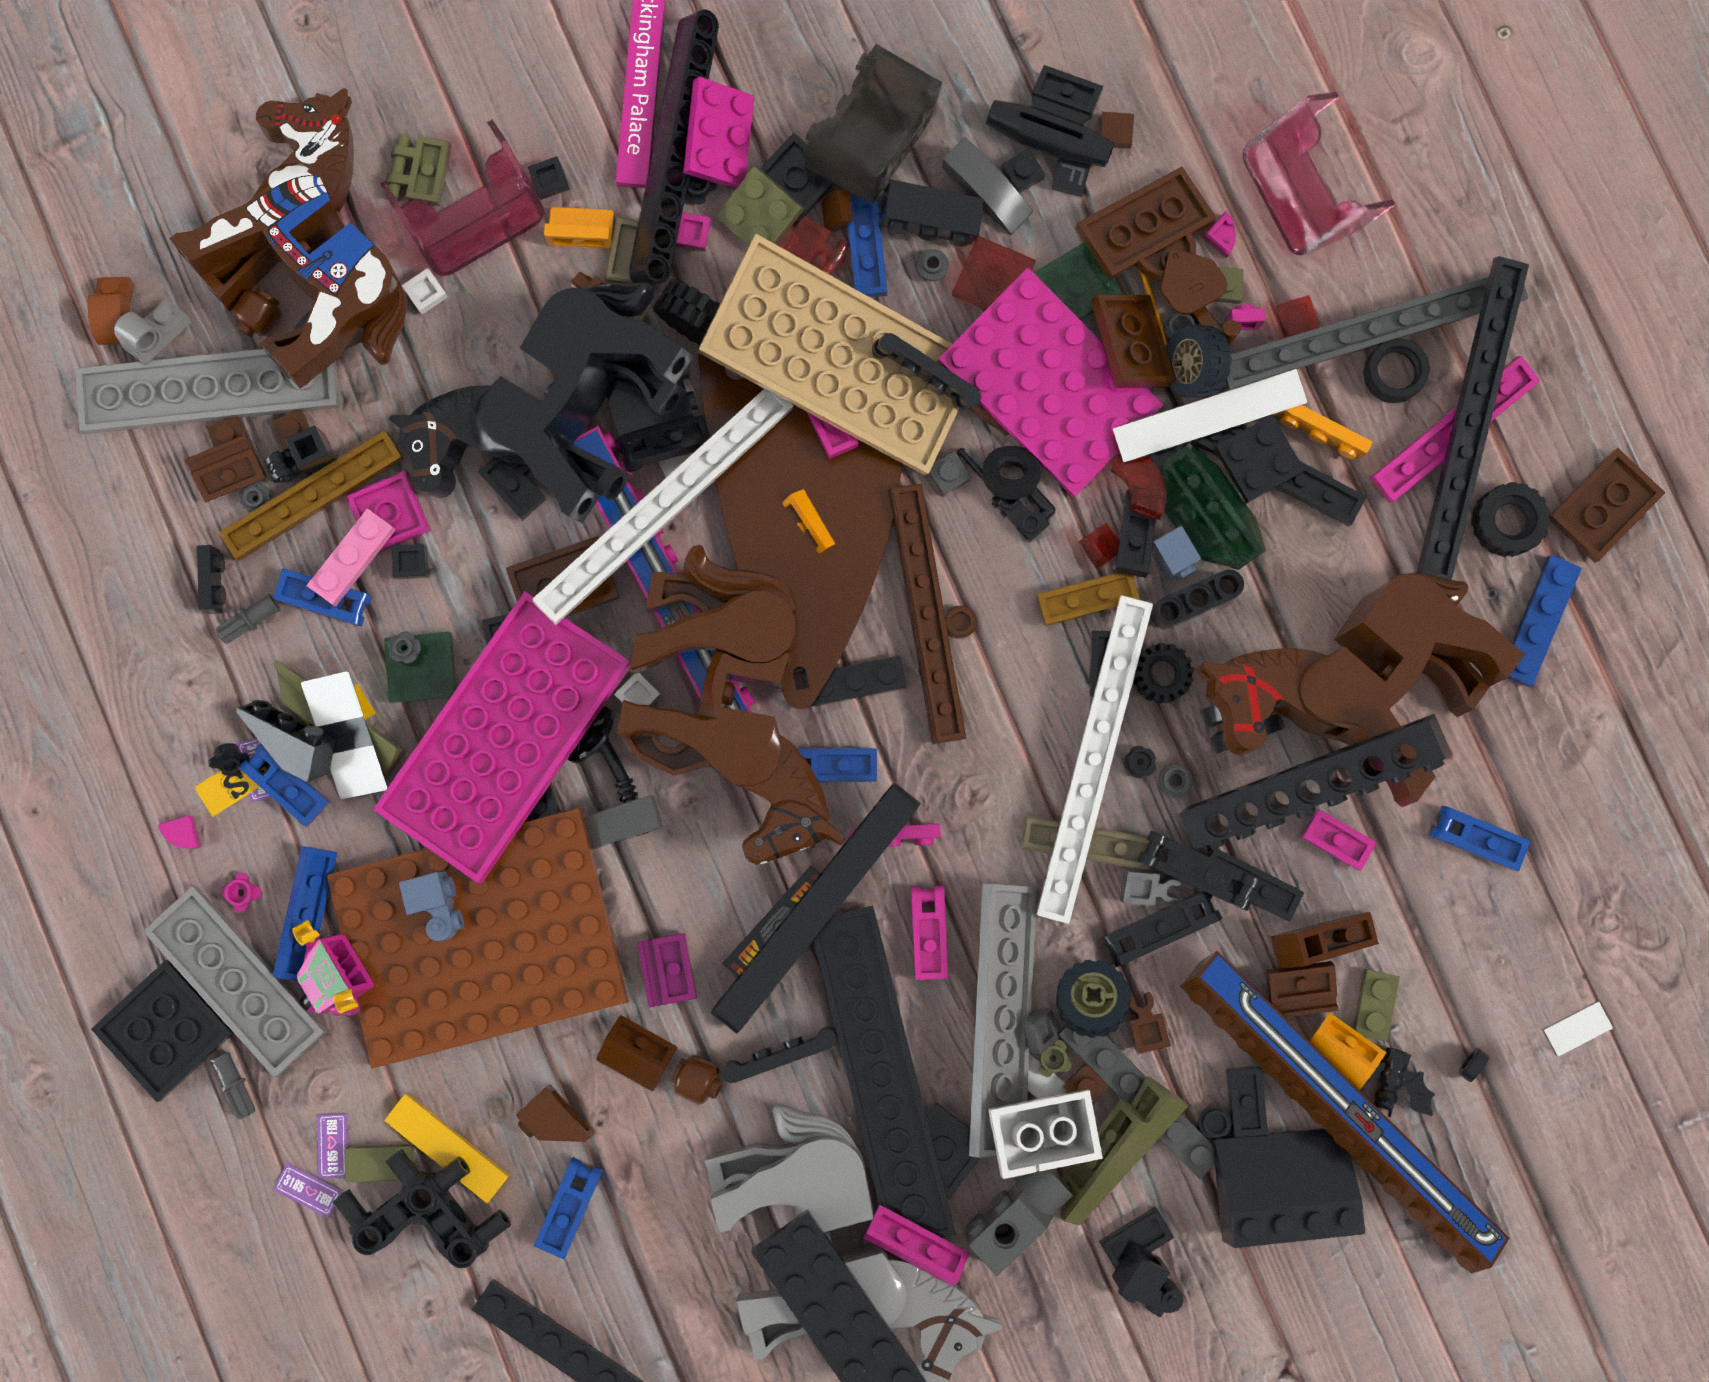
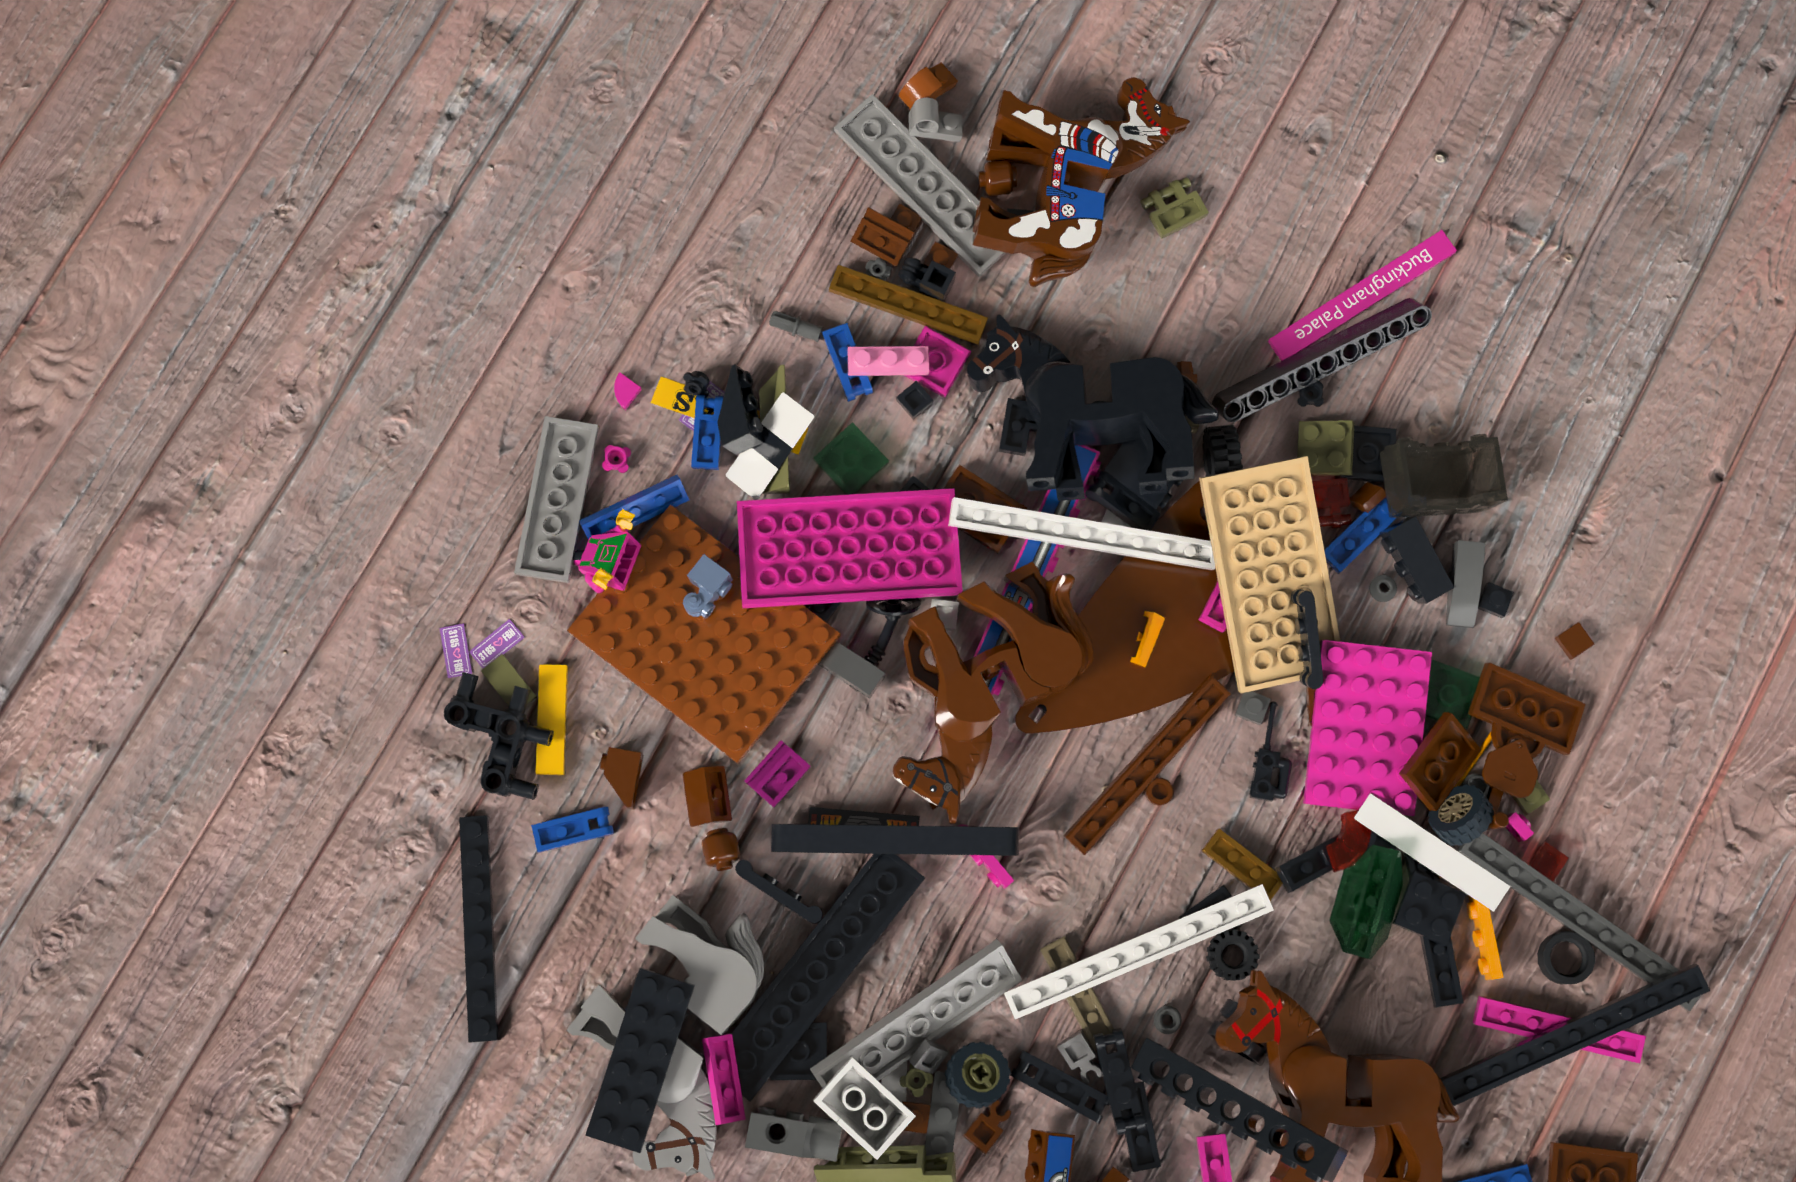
camera: 45 degrees right, 5 degrees down
(162, 1031) = (490, 478): black plate -> none
(210, 591) = (796, 289): black plate -> none
(233, 1086) = (488, 550): dark grey axle -> none
(409, 655) = (856, 447): dark grey plate -> none
(424, 291) = (1098, 273): white plate -> none
(477, 221) = (1173, 271): clear pink windscreen -> none
(548, 178) = (1236, 294): black plate -> none
(580, 228) = (1220, 339): light orange panel -> none
(621, 251) = (1226, 378): dark tan tile -> none
(693, 232) = (1277, 415): dark pink plate -> none
(718, 133) = (1355, 380): dark pink plate -> none
(843, 764) = (1003, 786): blue plate -> none
(862, 681) = (1068, 755): black plate -> none
(929, 934) = (935, 931): dark pink plate -> none
(989, 272) = (1408, 629): clear red plate -> none
(1006, 487) = (1275, 755): black tyre -> none
(1055, 119) = (1547, 594): black plate -> none
(1070, 177) = (1518, 634): black tile -> none
(1100, 545) = (1285, 845): clear red plate -> none
(1148, 758) = (1153, 986): black plate -> none
(1176, 554) = (1320, 901): sand blue brick -> none
(1210, 591) = (1314, 940): black beam -> none
(1222, 235) = (1562, 767): dark pink tile -> none
(1293, 186) = (1635, 789): clear pink windscreen -> none
(1536, 519) = (1550, 1116): black tyre -> none

